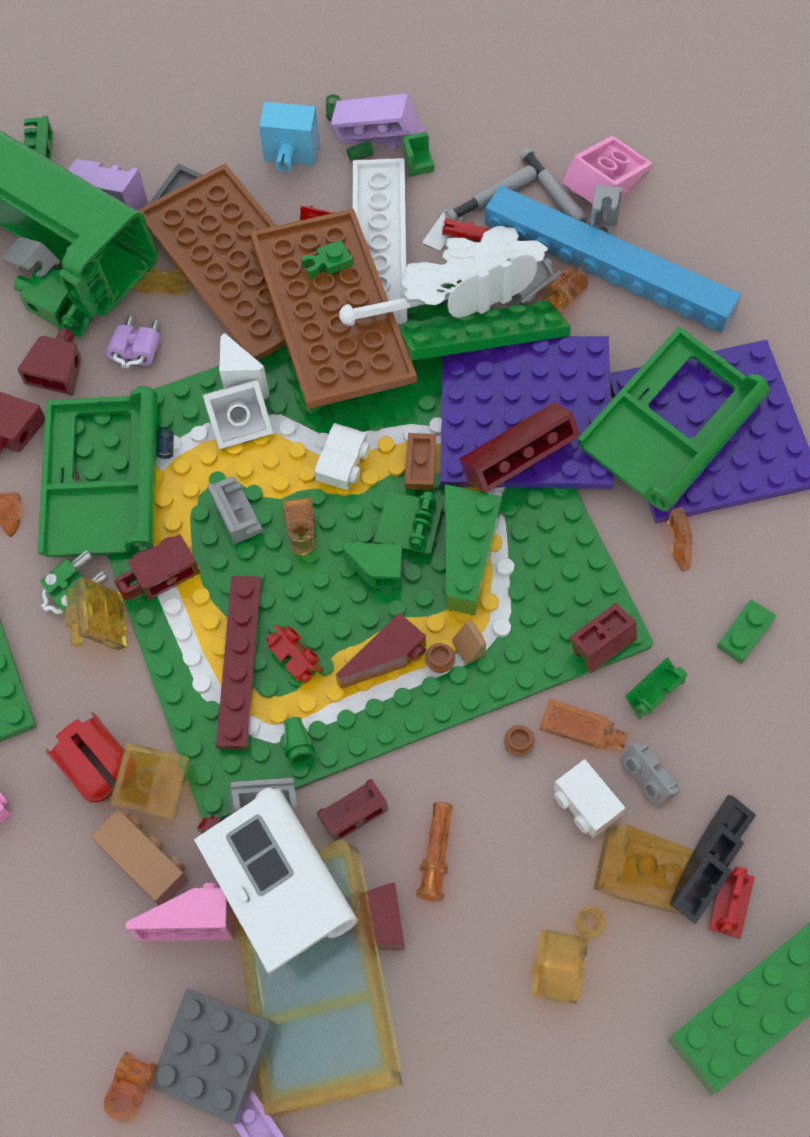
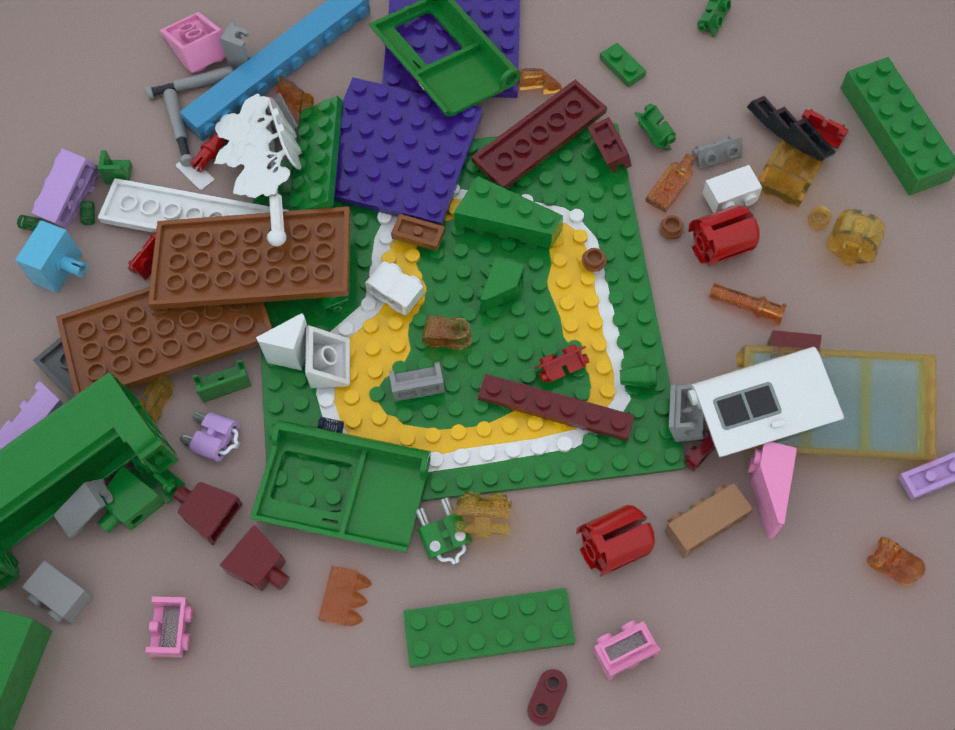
camera: 75 degrees left, 0 degrees up
(150, 781) = (653, 488): clear yellow slope -> none
(158, 569) = (454, 451): dark red brick -> none
(196, 332) = (222, 382): none -> green hinge
(212, 1056) = (883, 490): dark grey plate -> none
(330, 258) = (205, 246): green plate -> none
(353, 811) = (702, 352): dark red hinge -> none
(388, 651) = (578, 289): dark red slope -> none
(409, 521) = (468, 254): green hinge -> none
(469, 643) = (588, 235): medium nougat slope -> none
(516, 800) = (724, 234): none -> red cylinder
(520, 447) = (440, 152): dark red brick -> none
(597, 556) = (539, 134): none -> dark red plate

